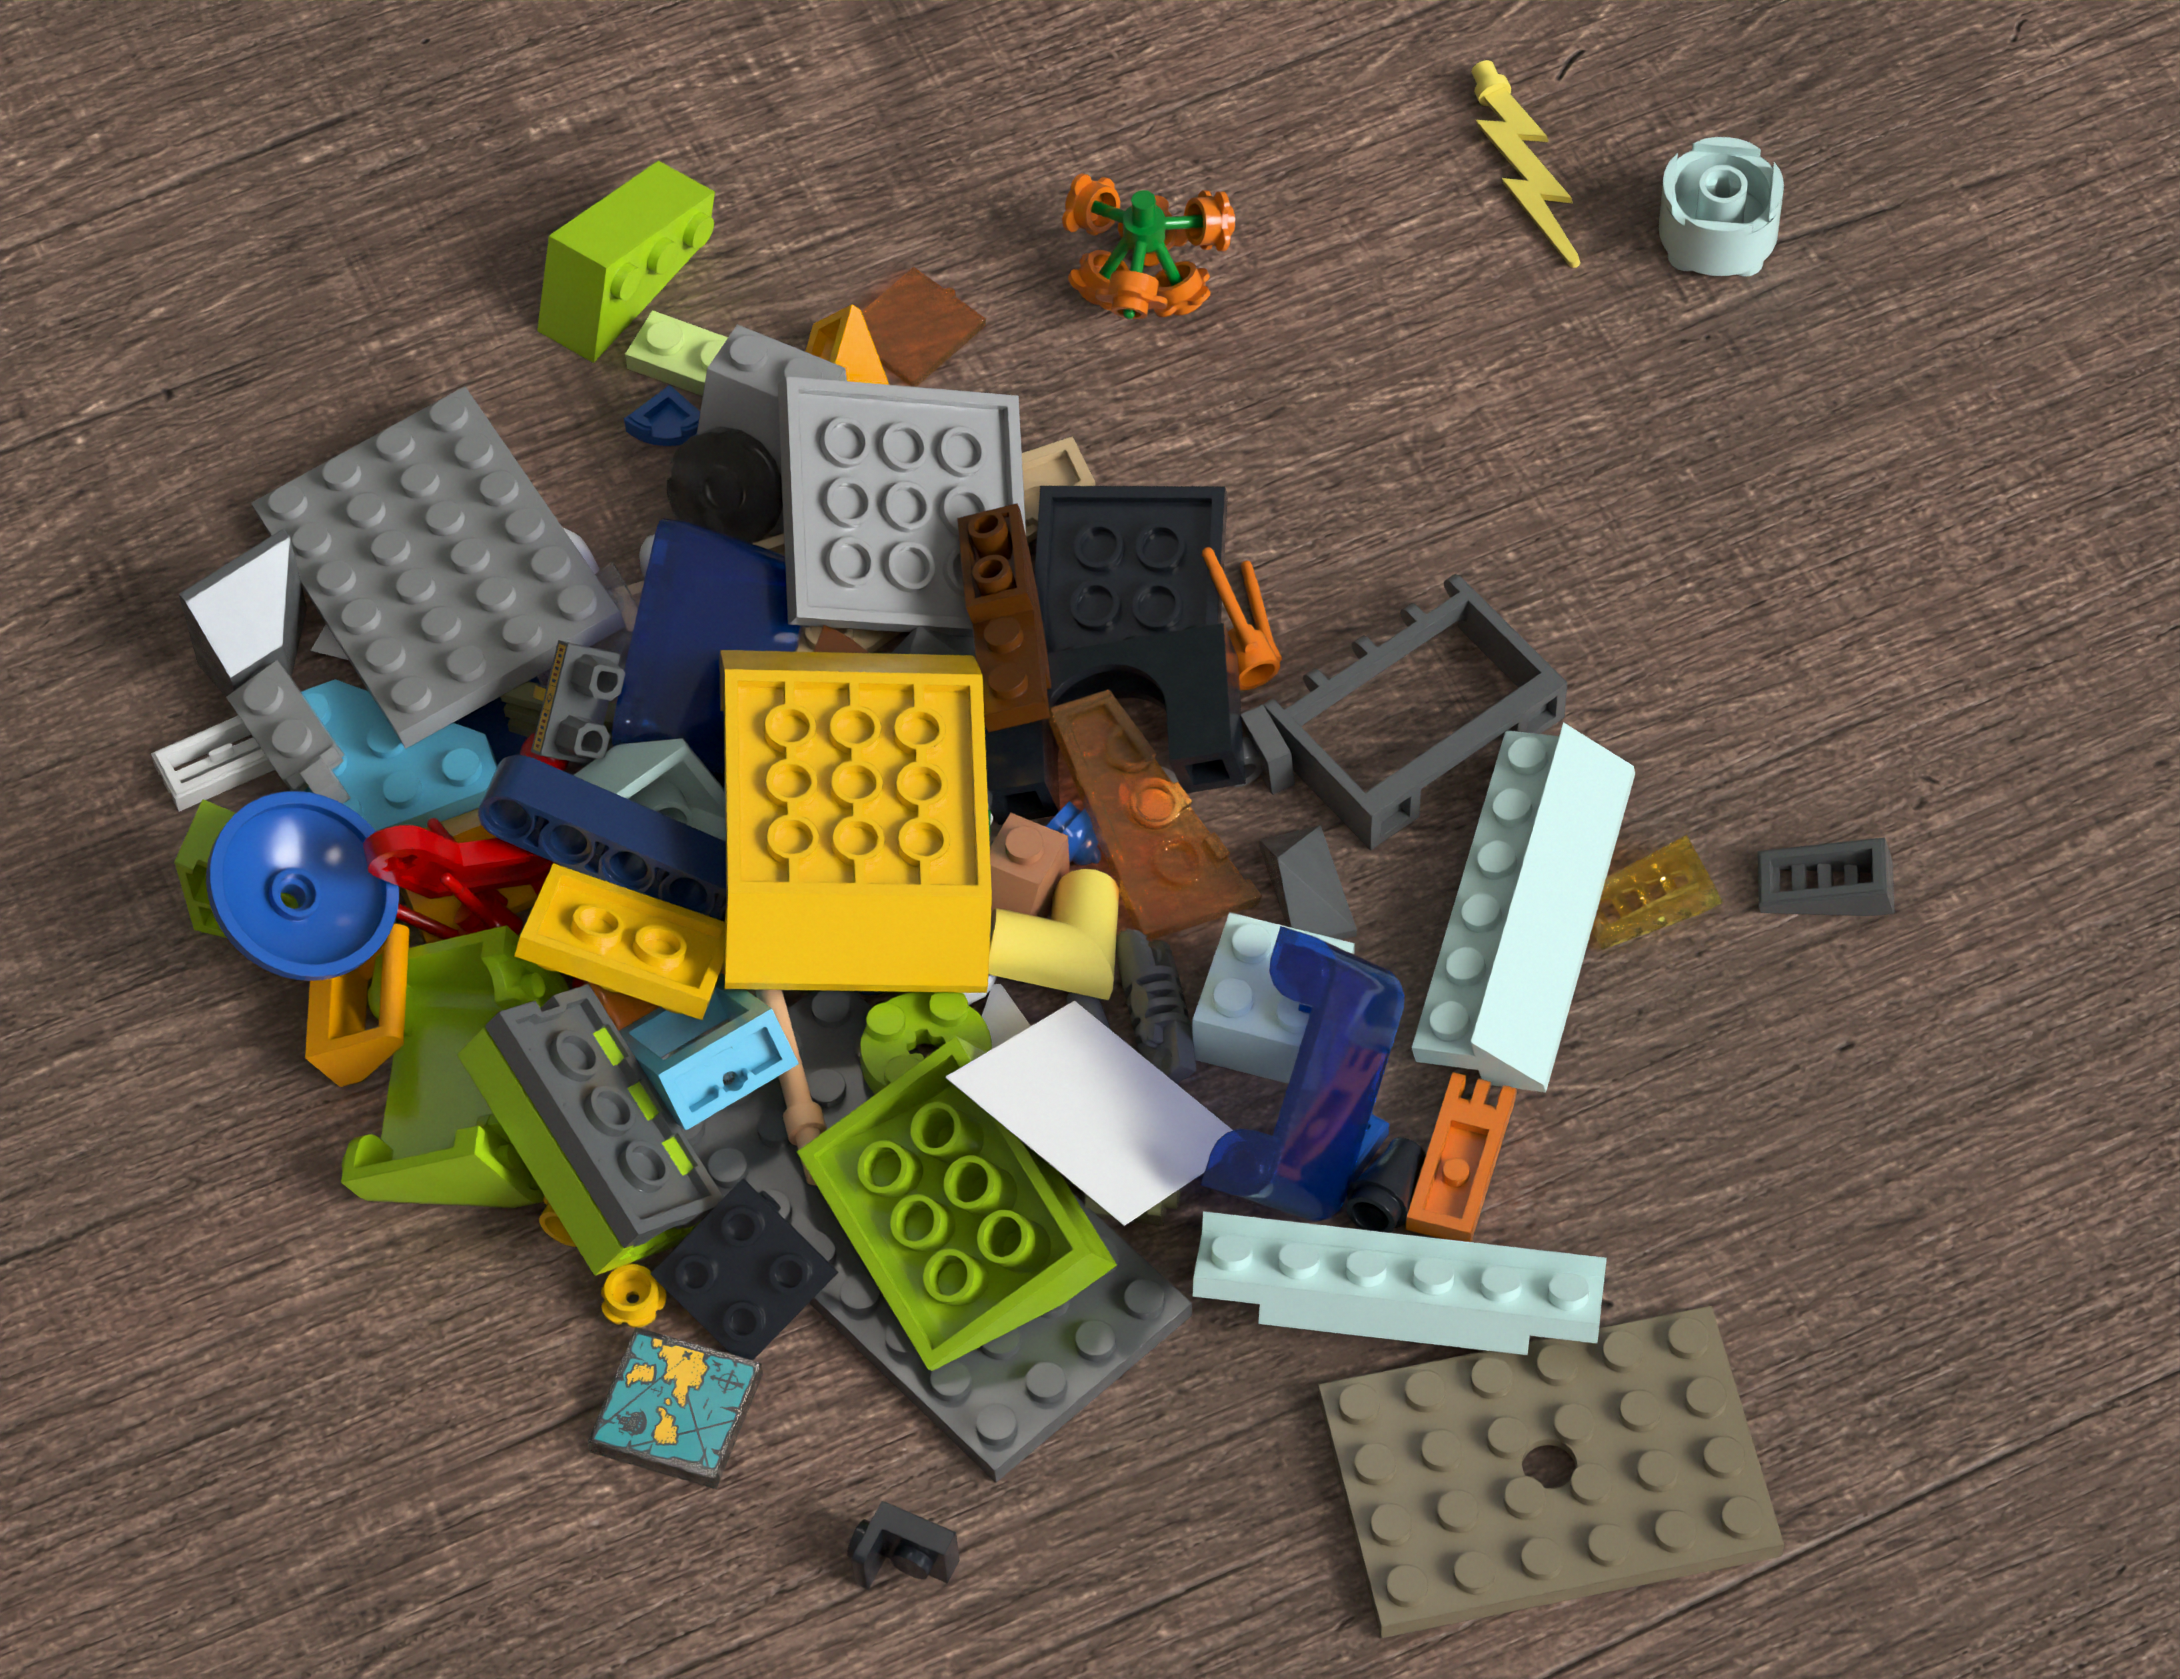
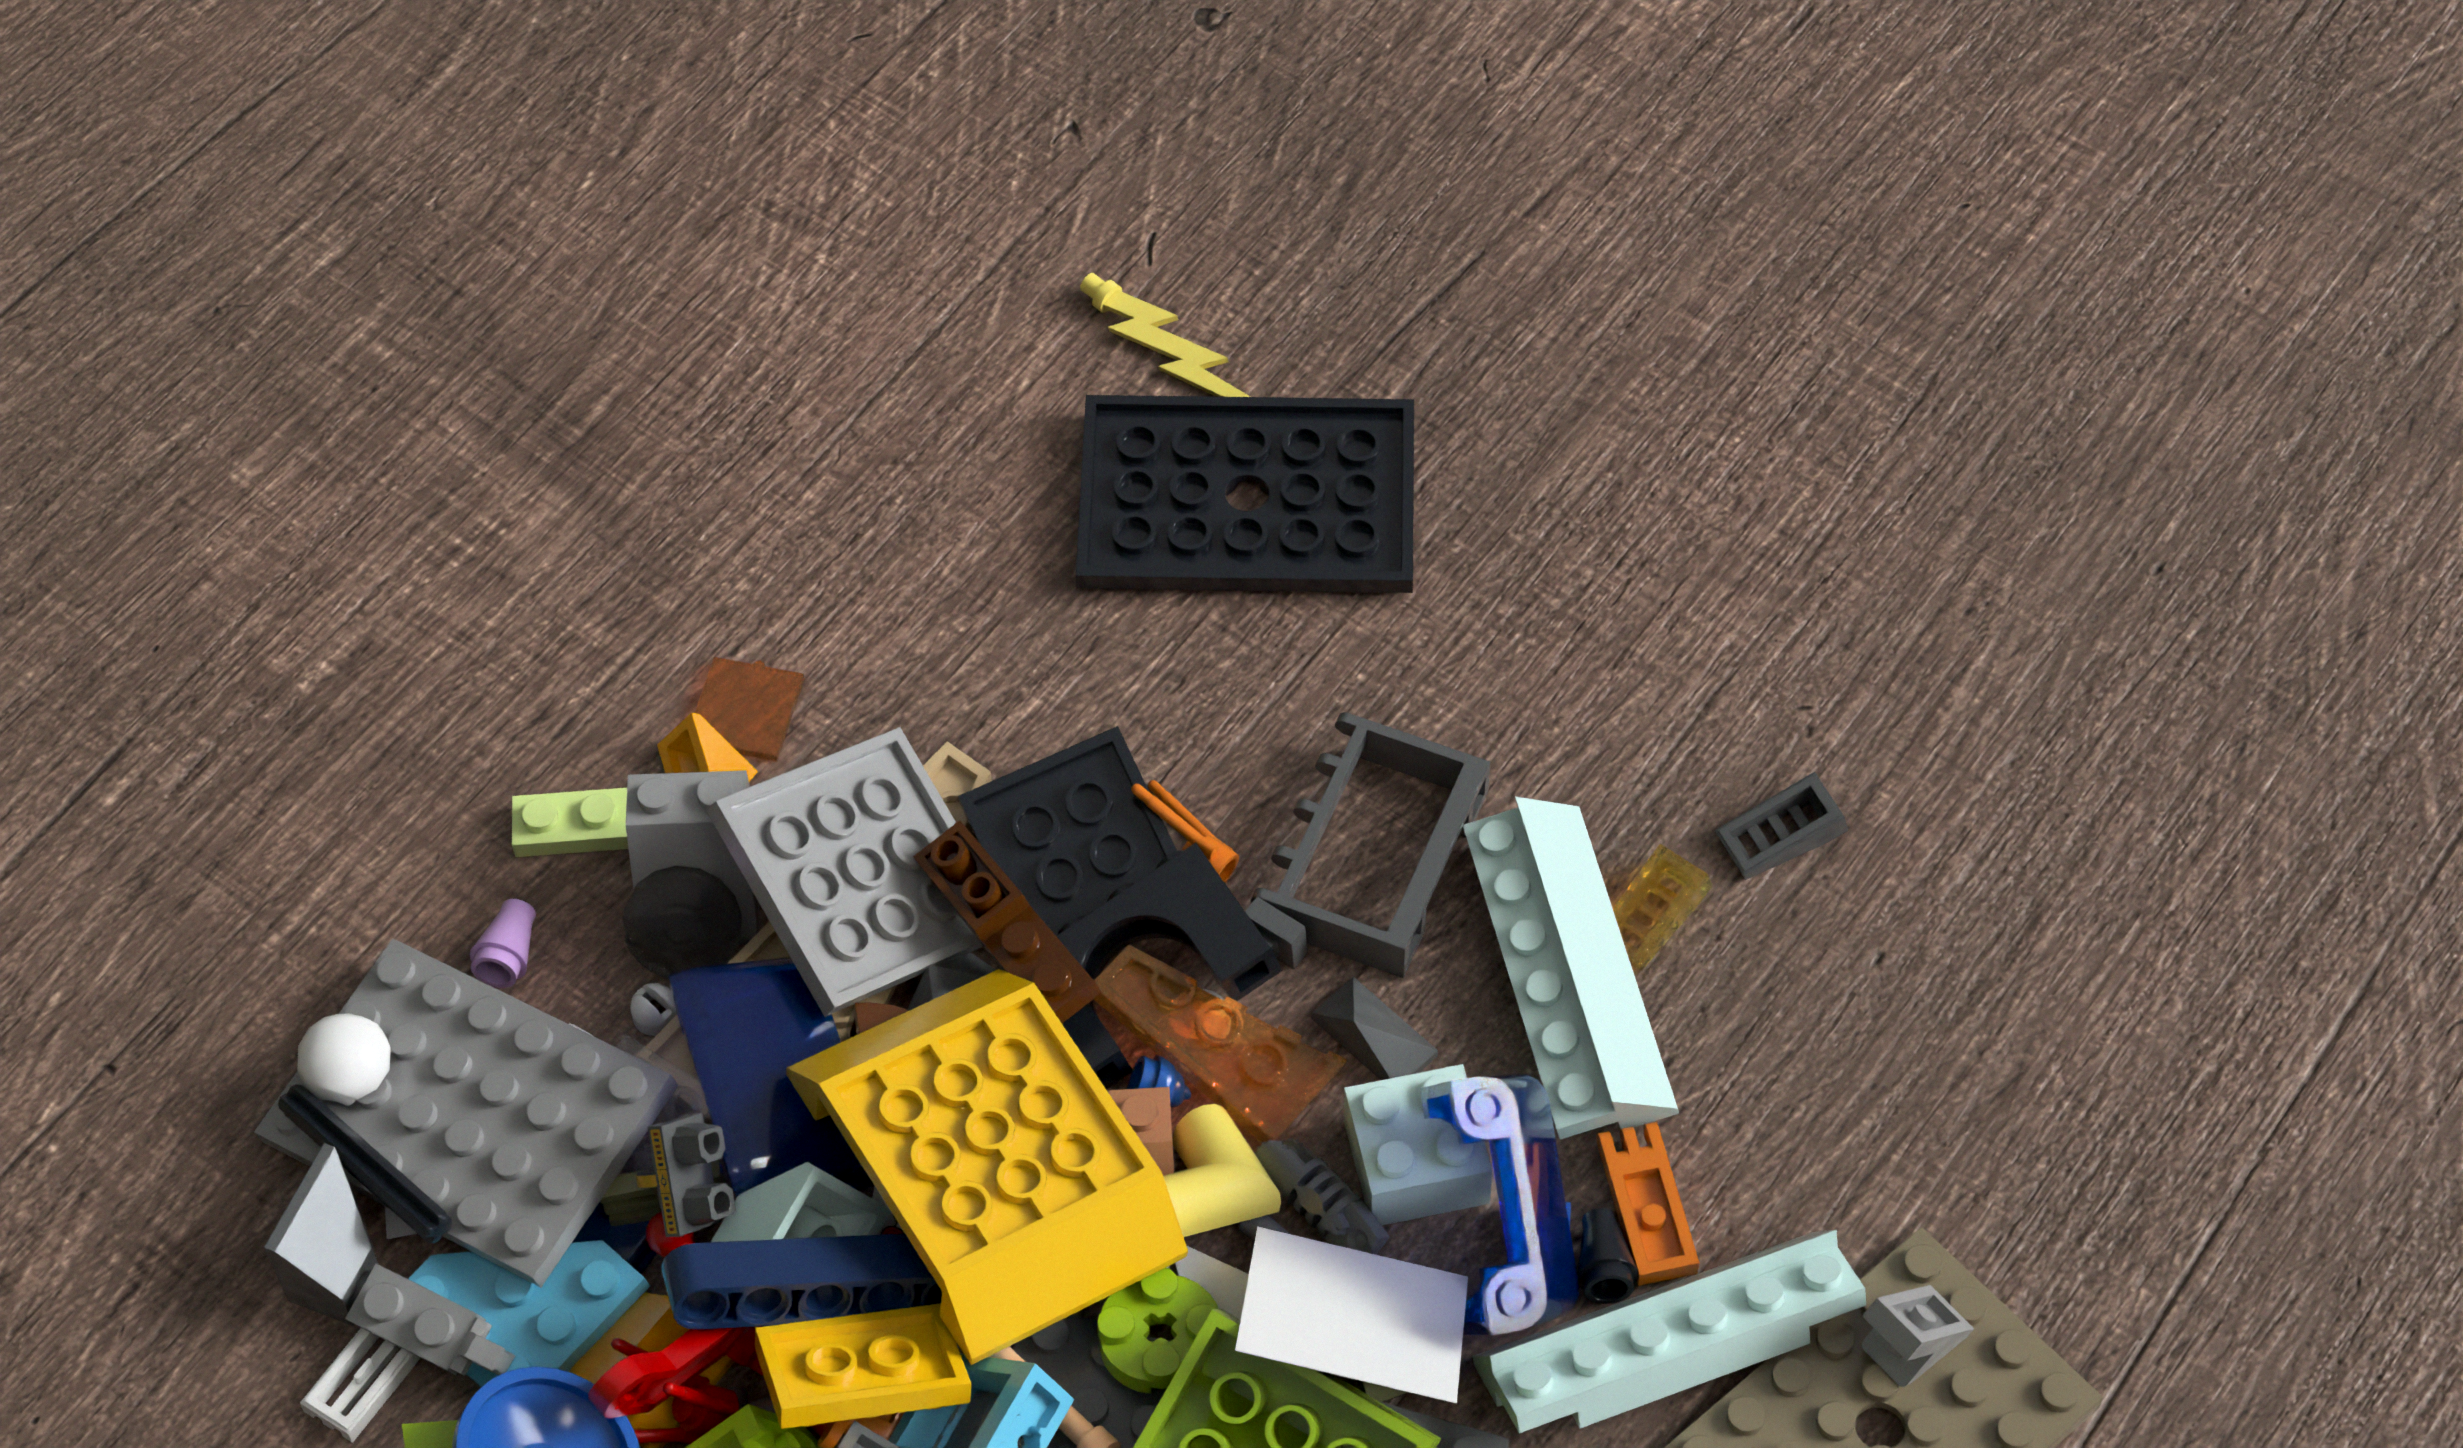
camera: 30 degrees left, 0 degrees up
(316, 568) = (366, 1164): none -> black axle
(353, 467) = (343, 1058): none -> white hair
(563, 440) = (503, 948): none -> lavender cone
(620, 257) = (460, 762): lime wedge -> none
(664, 419) = (582, 886): blue tile -> none
(1150, 233) = (907, 539): orange plant -> none
(1442, 270) = (1332, 478): none -> black plate
(1626, 1386) = (1912, 1332): none -> light grey slope
(1720, 208) = (1358, 313): light aqua brick -> none

